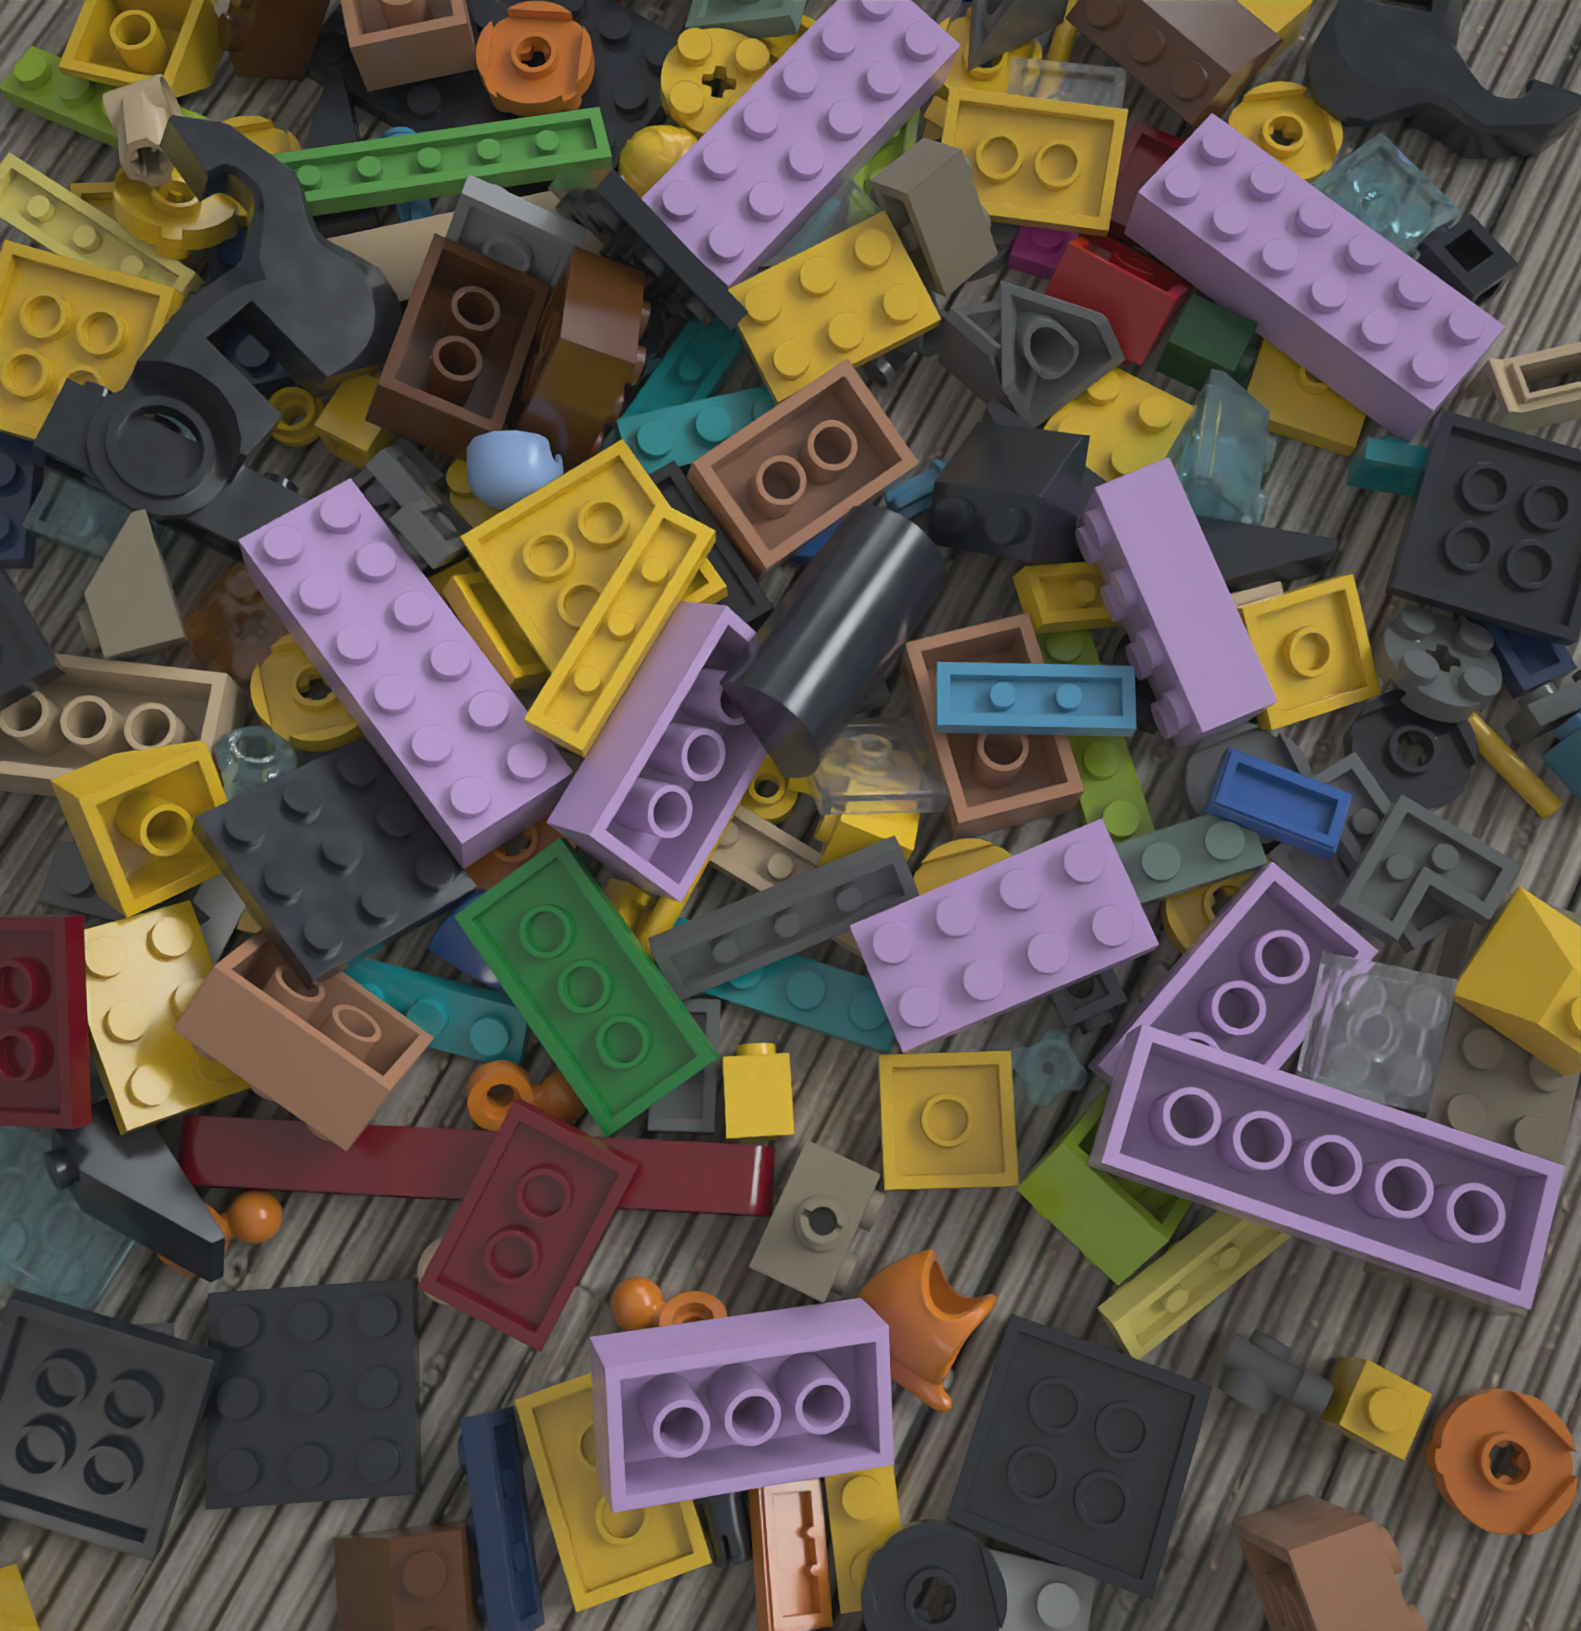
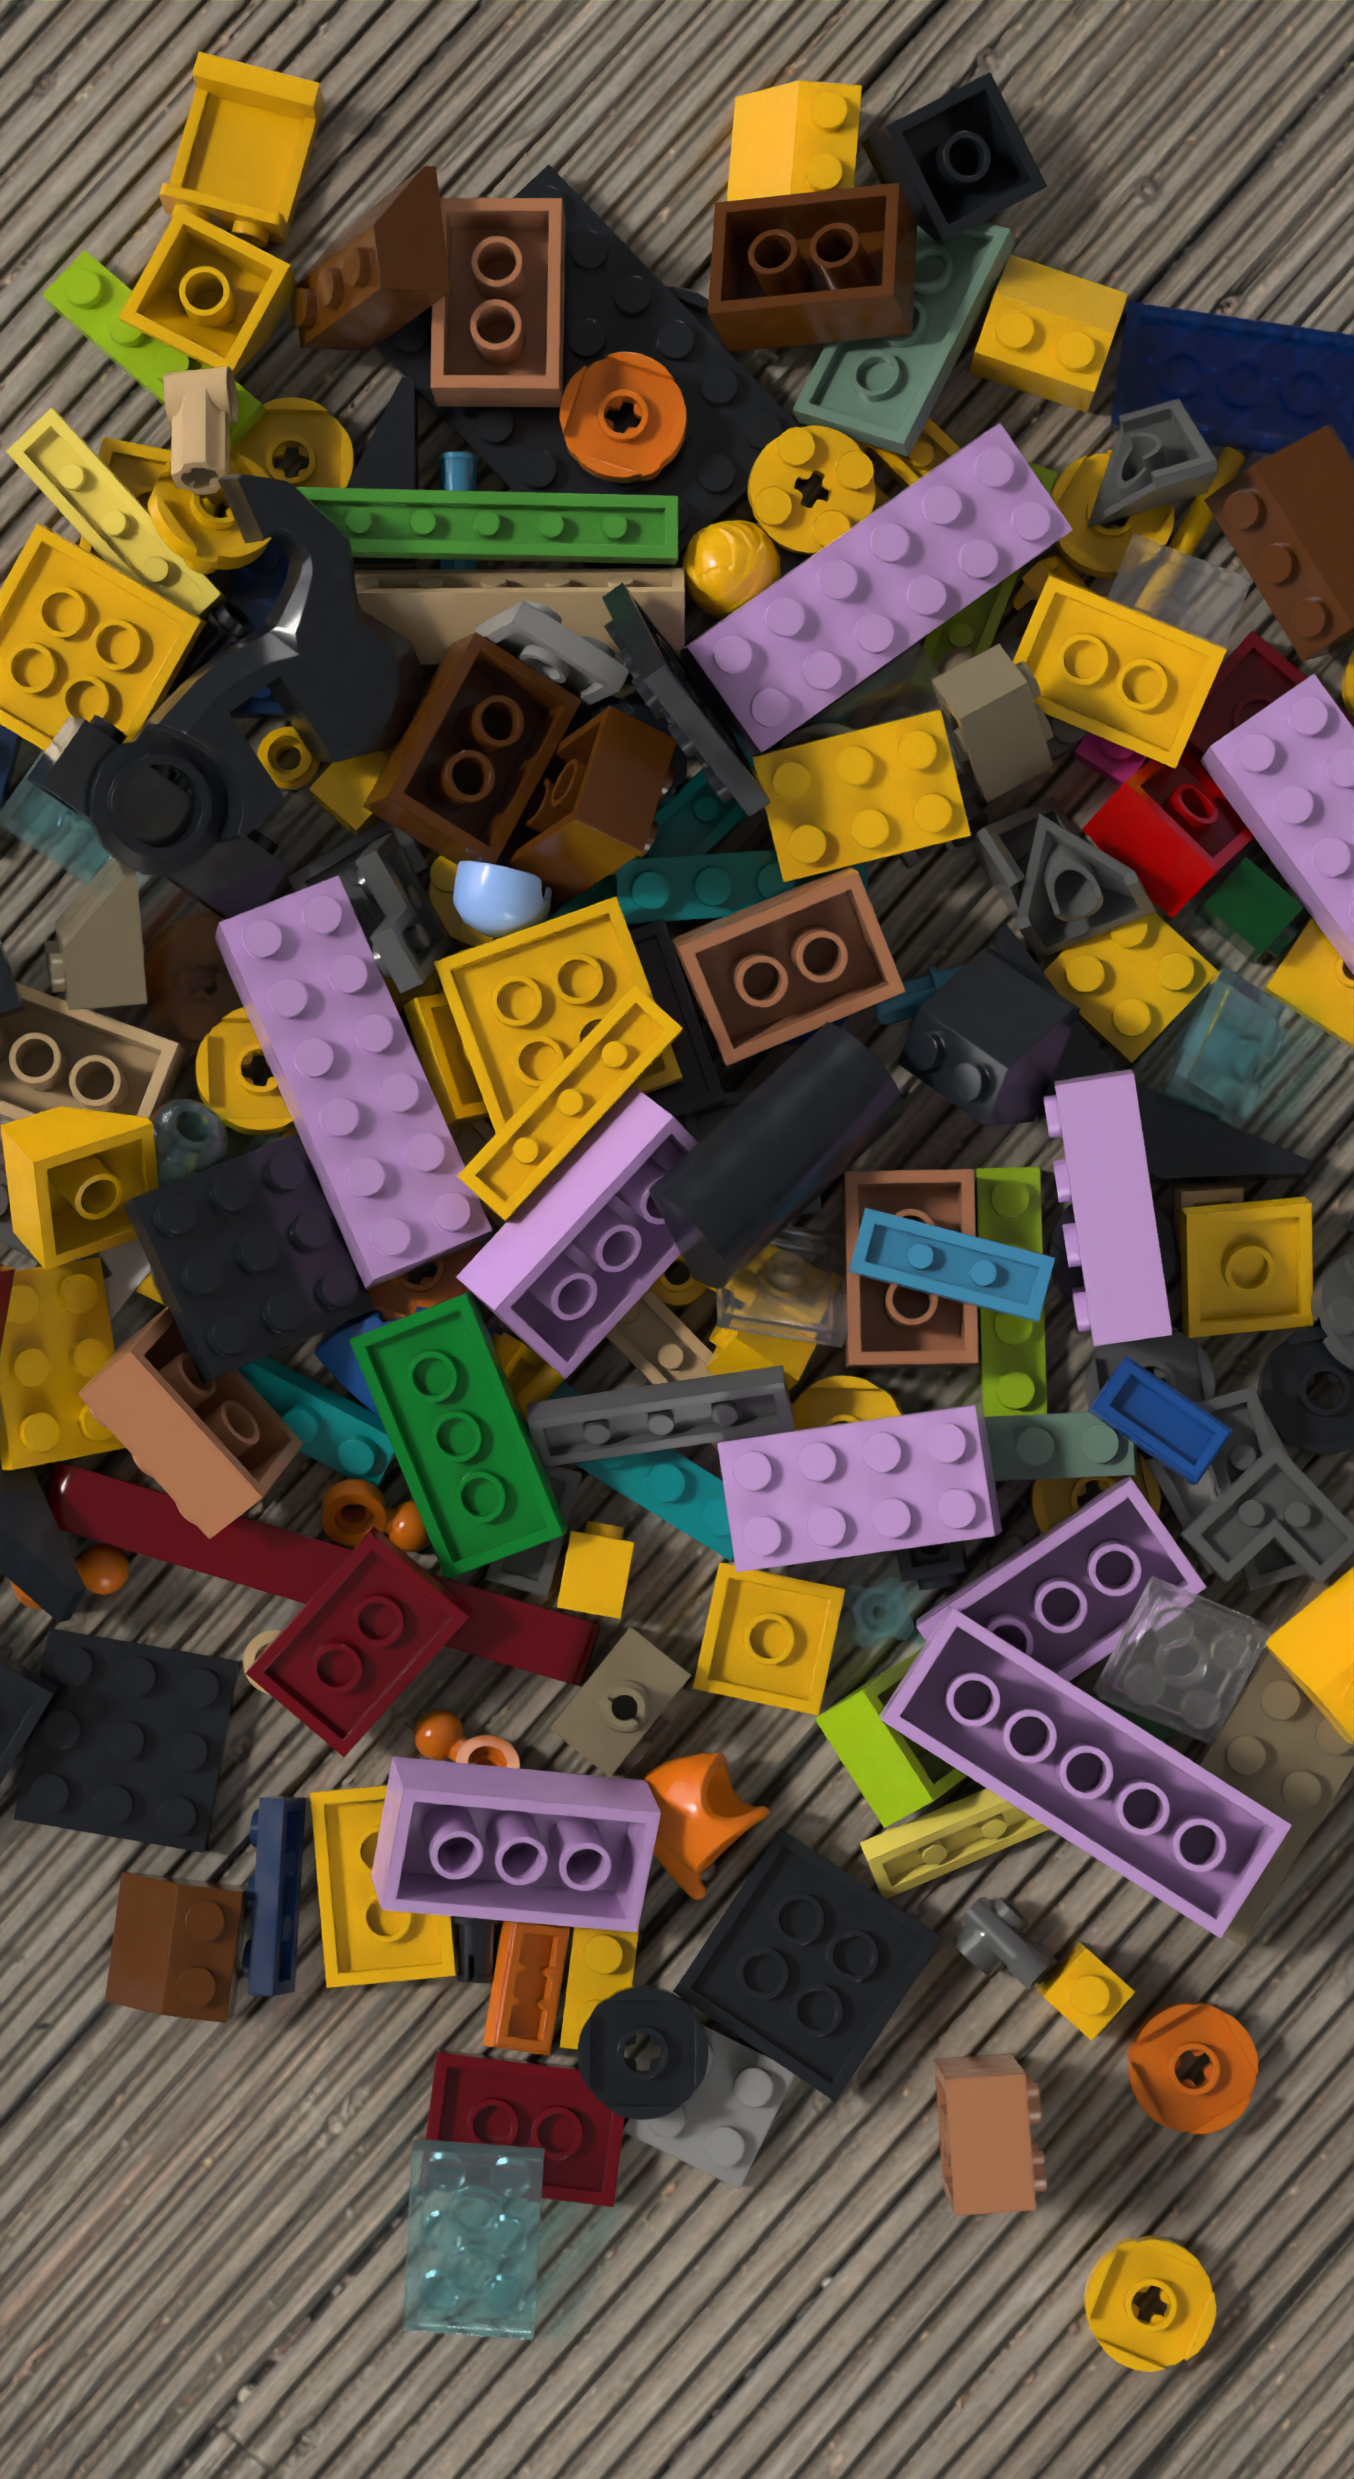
camera: 15 degrees right, 10 degrees up
(1063, 597) = (1015, 1156): yellow plate -> none

